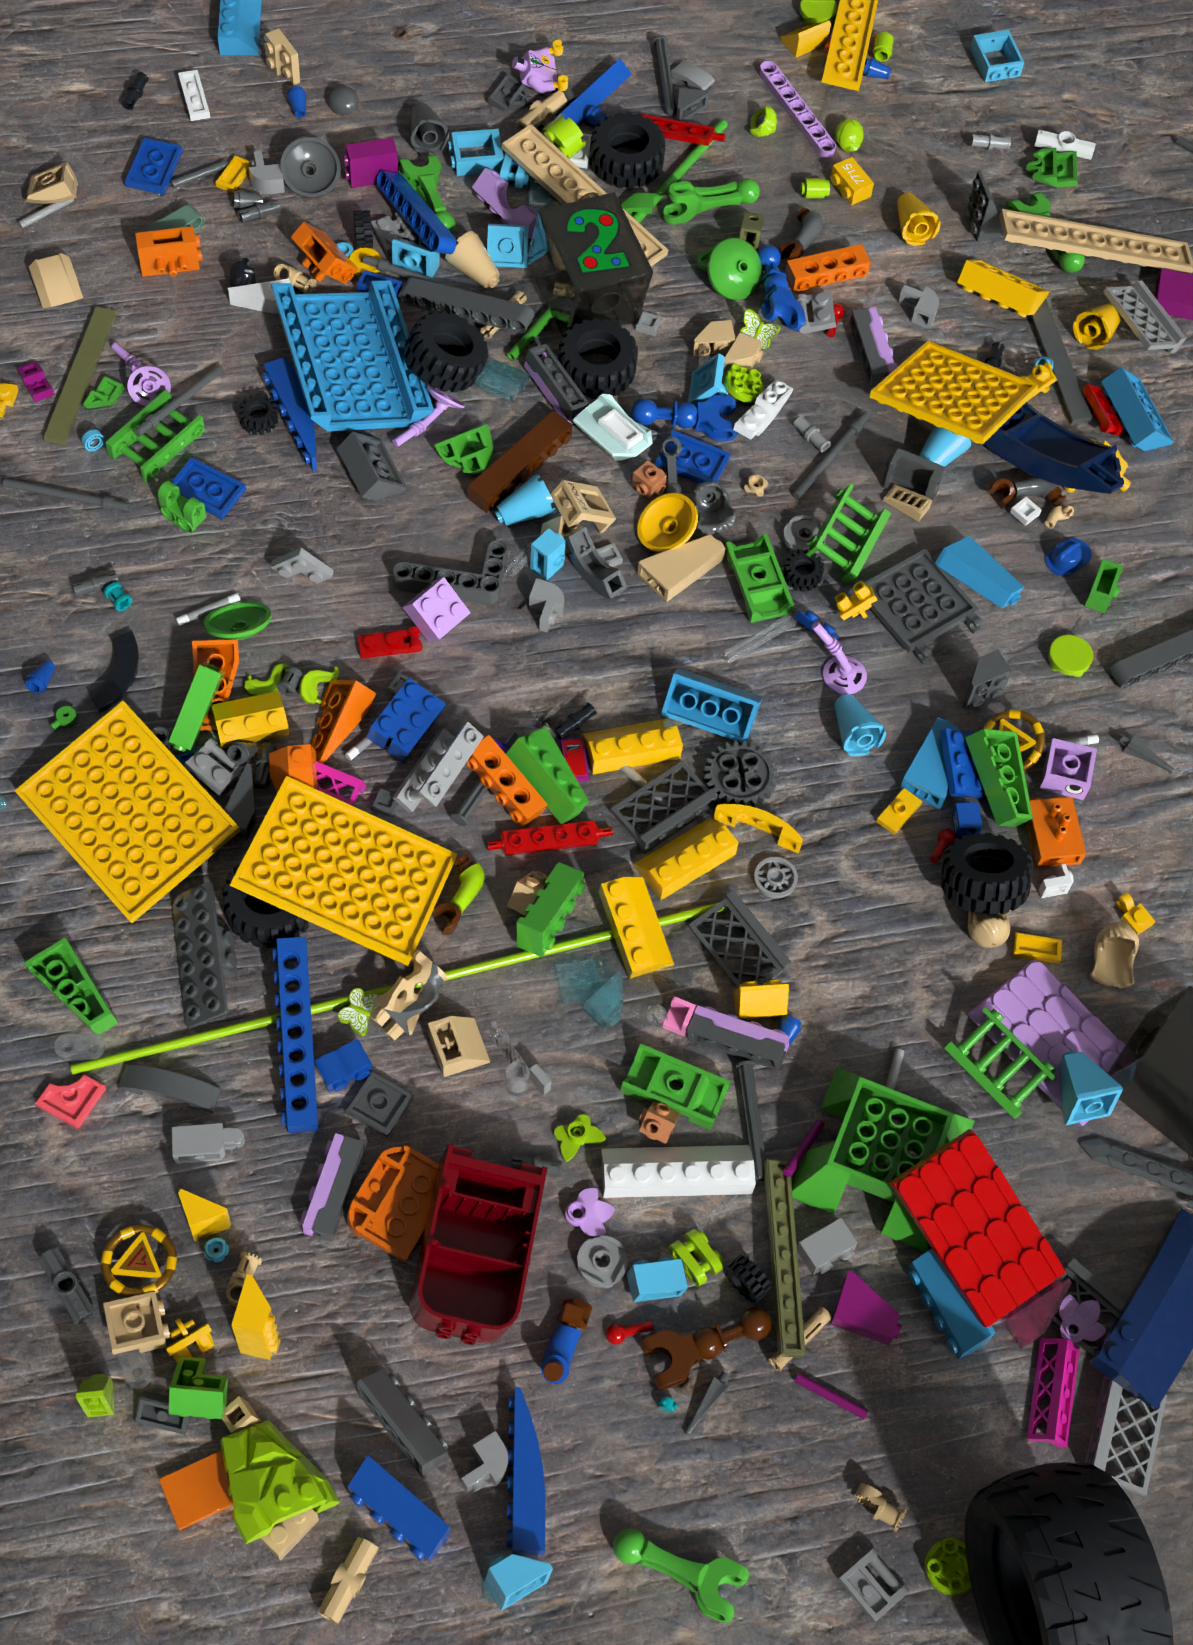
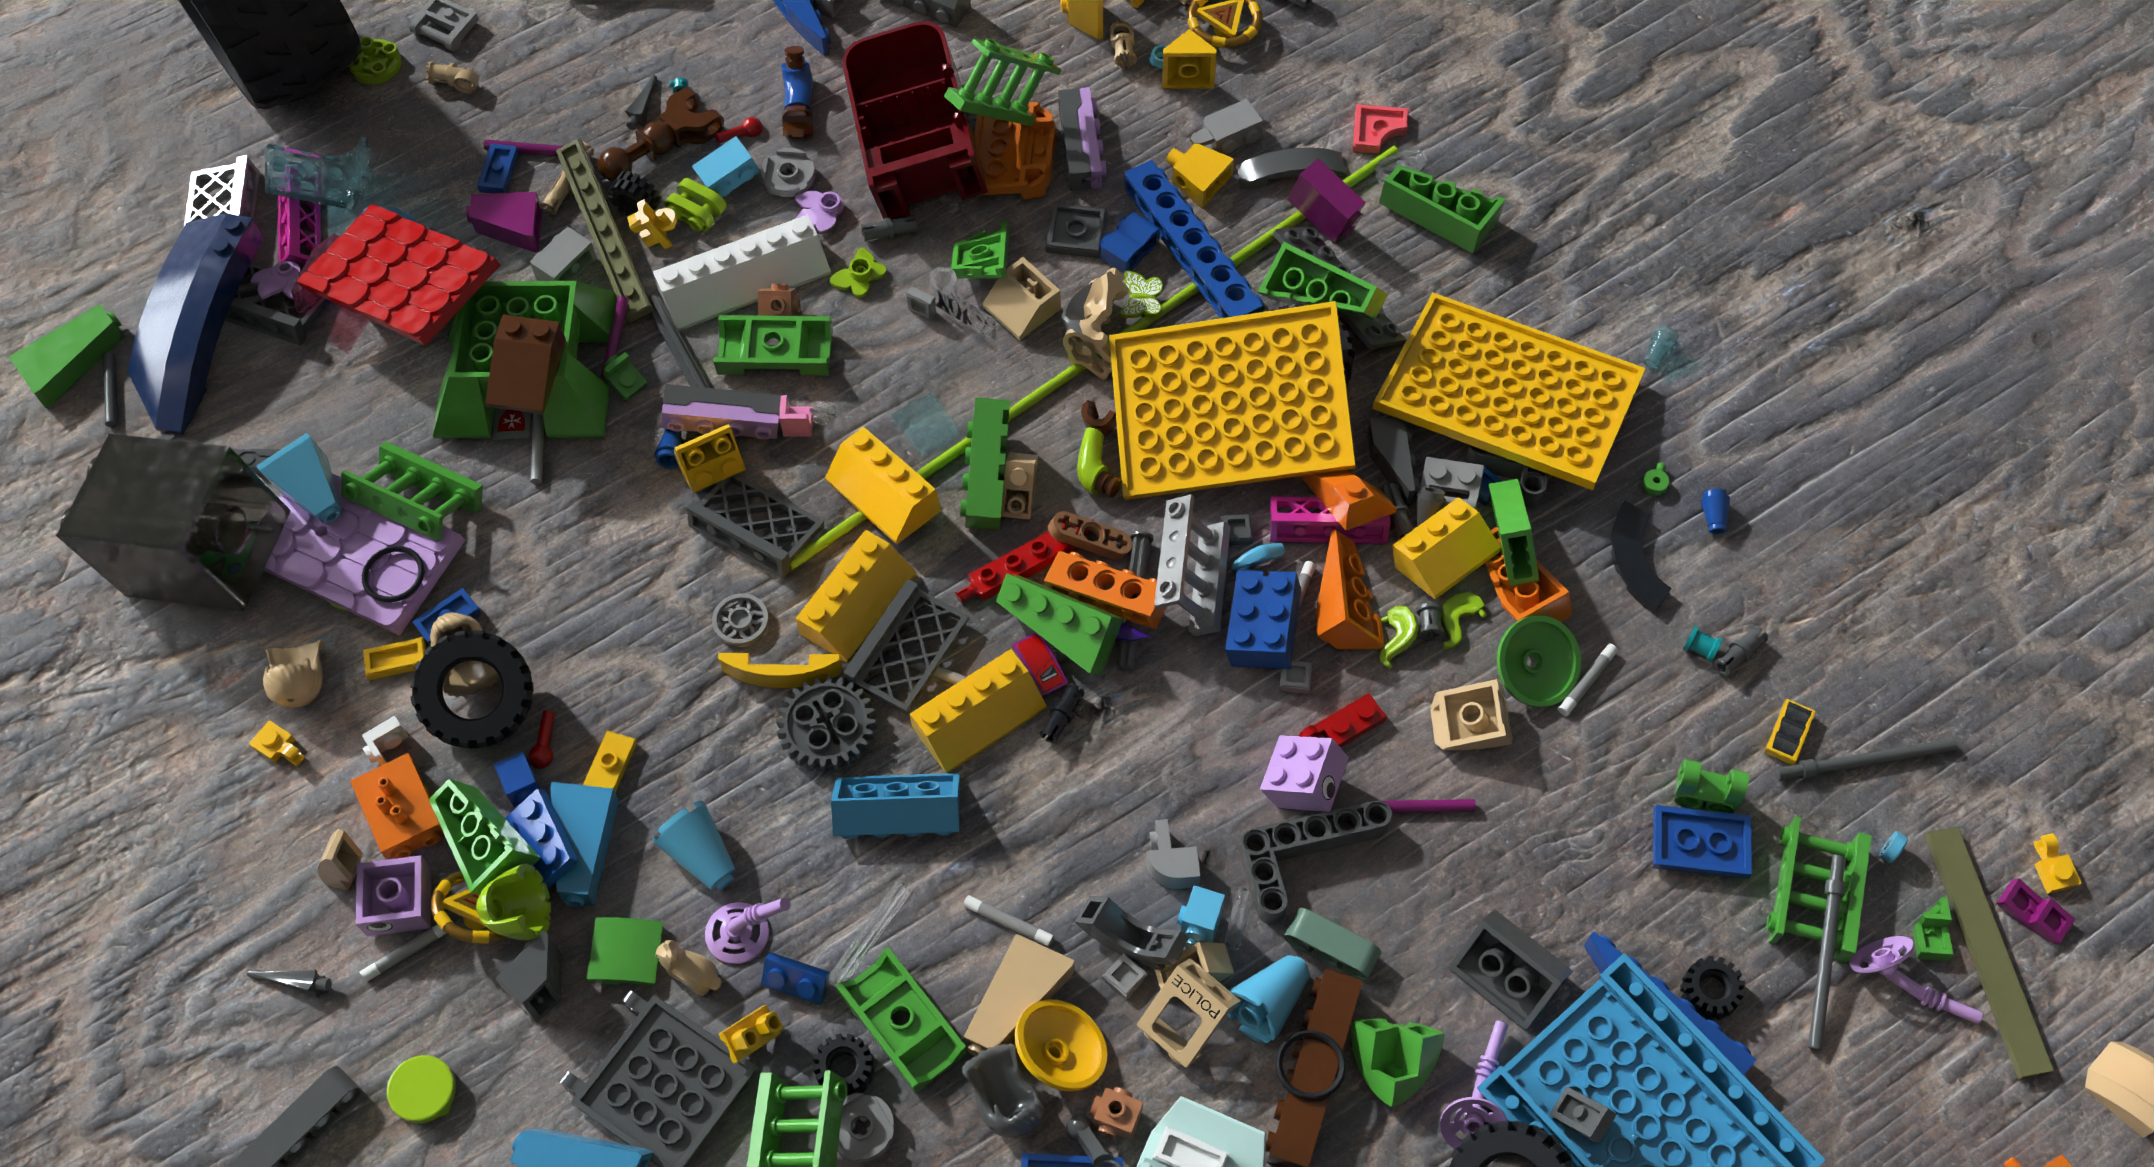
camera: 165 degrees right, 0 degrees up
(101, 528) = (1789, 732): none -> tile
(168, 1019) = (1326, 201): none -> magenta brick
(222, 930) = (1307, 280): none -> bright green wedge
(249, 1109) = (1200, 172): none -> yellow torso
(302, 562) = (1508, 761): light grey plate -> none
(304, 608) = (1471, 717): none -> tan slope
(363, 576) = (1420, 806): none -> magenta bar
(383, 369) = (1583, 1115): none -> dark grey slope
(384, 770) = (1258, 555): none -> medium azure arm
(392, 1202) = (1002, 107): none -> bright green fence
(472, 520) = (1332, 944): none -> sand green beam
(472, 1095) = (982, 254): none -> bright green wing
(502, 835) = (1079, 540): none -> medium nougat beam
(524, 471) = (1300, 1094): none -> black tyre
(607, 1002) = (882, 400): clear light blue slope -> none
(667, 614) = (1008, 920): none -> light grey bar
(740, 1240) = (652, 224): none -> yellow hips
(806, 1109) = (623, 376): none -> bright green bracket
(861, 1375) = (498, 168): none -> blue plate
(884, 655) = (688, 967): none -> tan animal
(889, 1090) = (524, 363): none -> reddish brown slope
(921, 686) = (624, 951): none -> bright green slope
(989, 711) = (516, 904): none -> lime hair
(993, 960) = (458, 602): none -> blue plate
(1020, 1015) = (421, 571): none -> black tyre
(1027, 1418) = (318, 177): none -> clear light blue bracket
(1103, 795) = (339, 861): none -> tan slope

